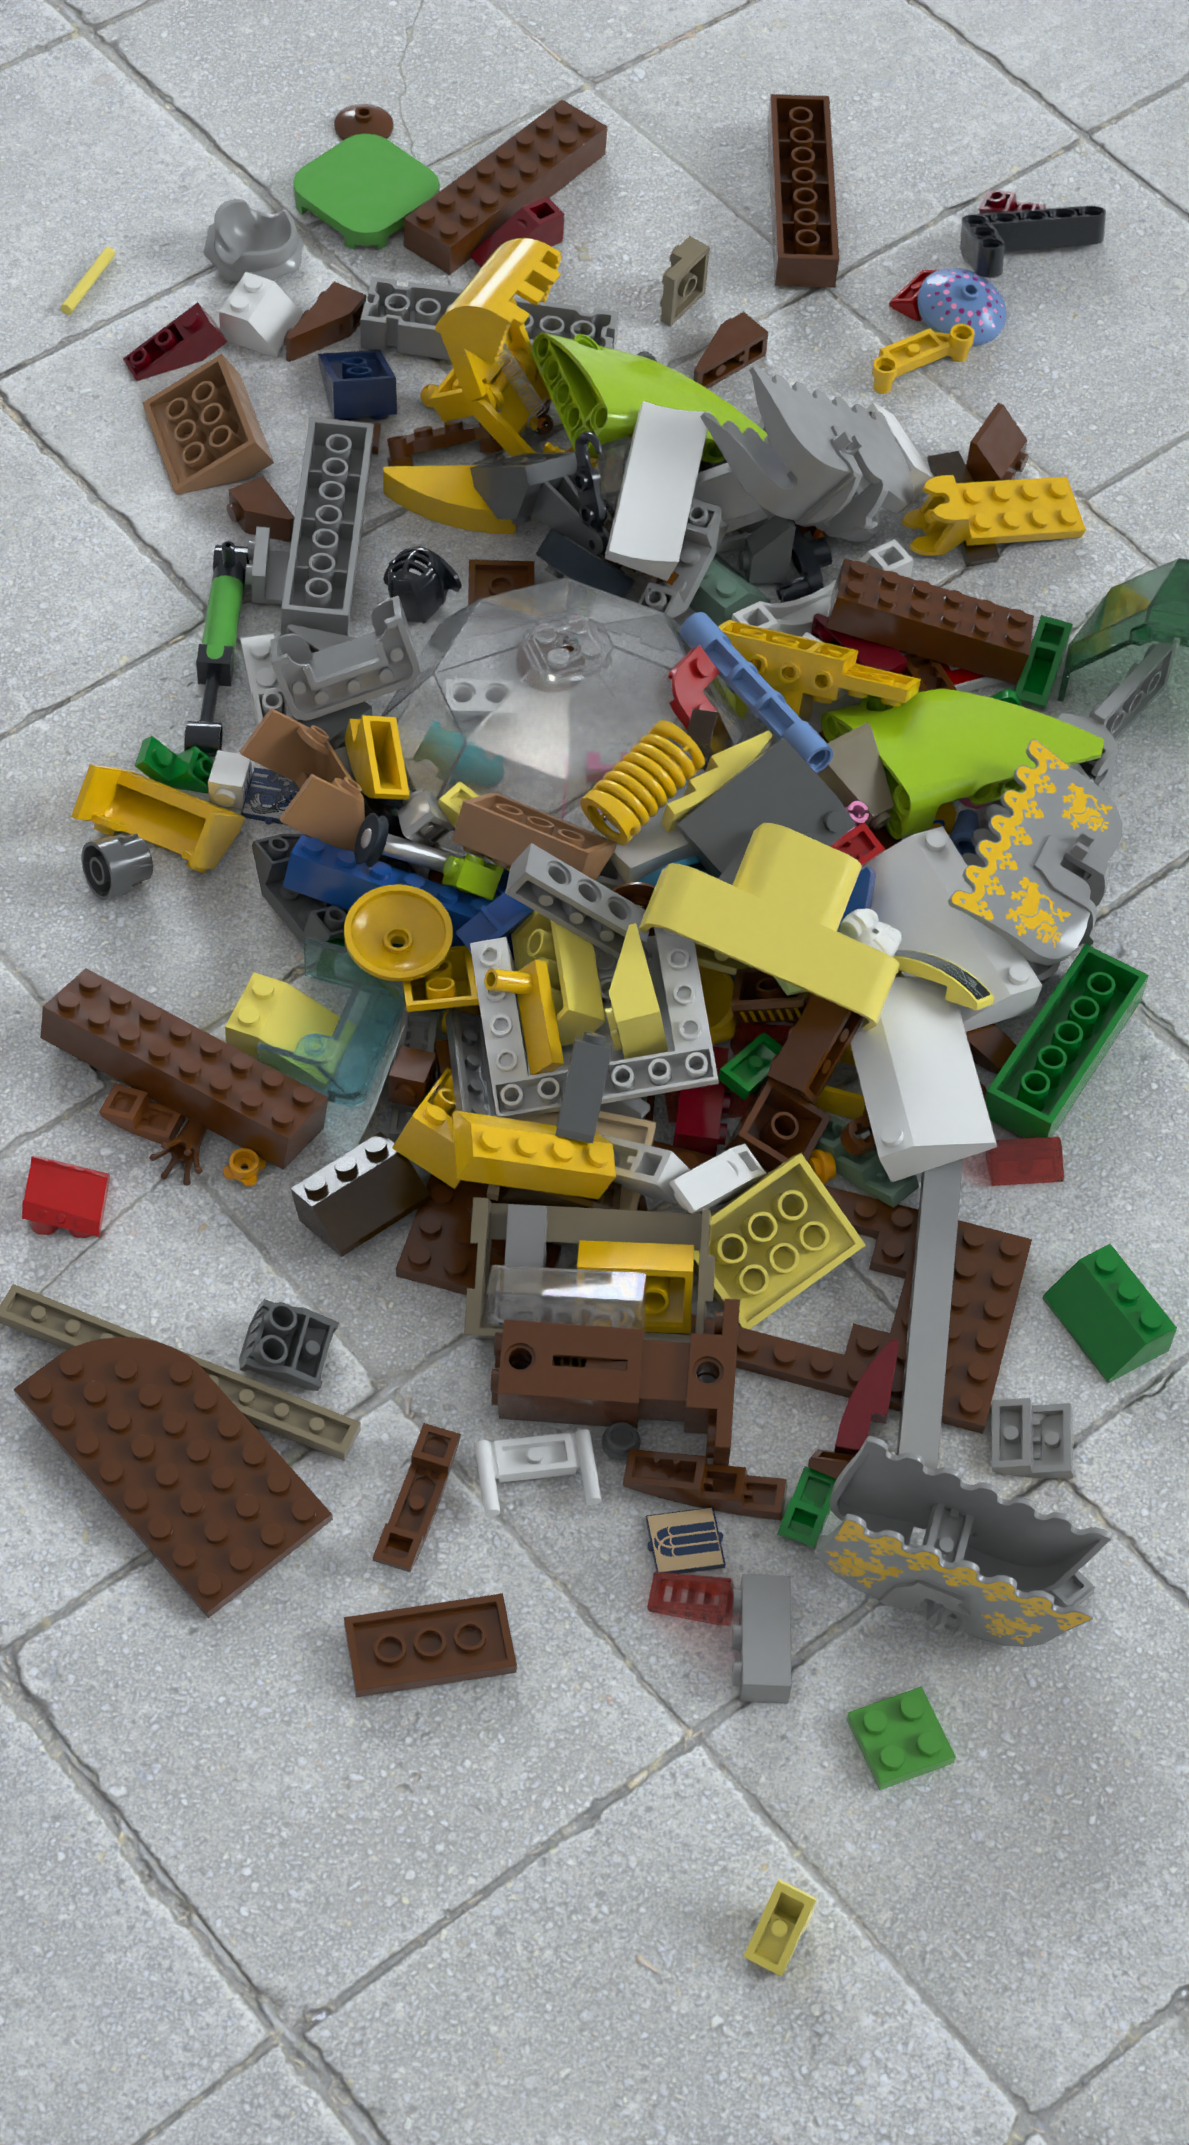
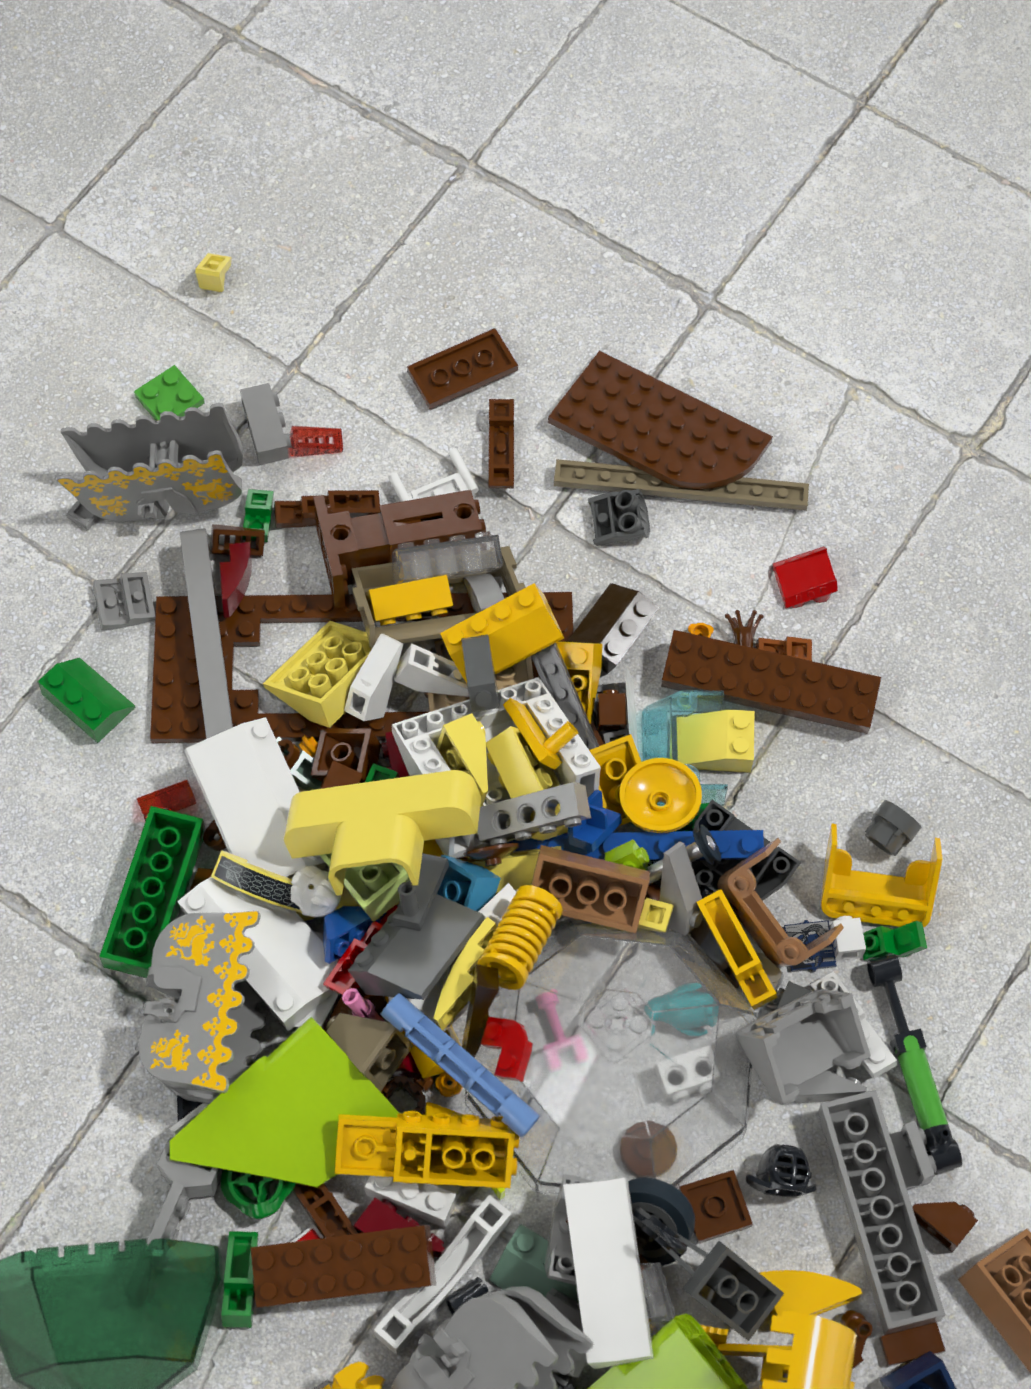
camera: 165 degrees right, 10 degrees up
(685, 1541) = (330, 474): piece -> none

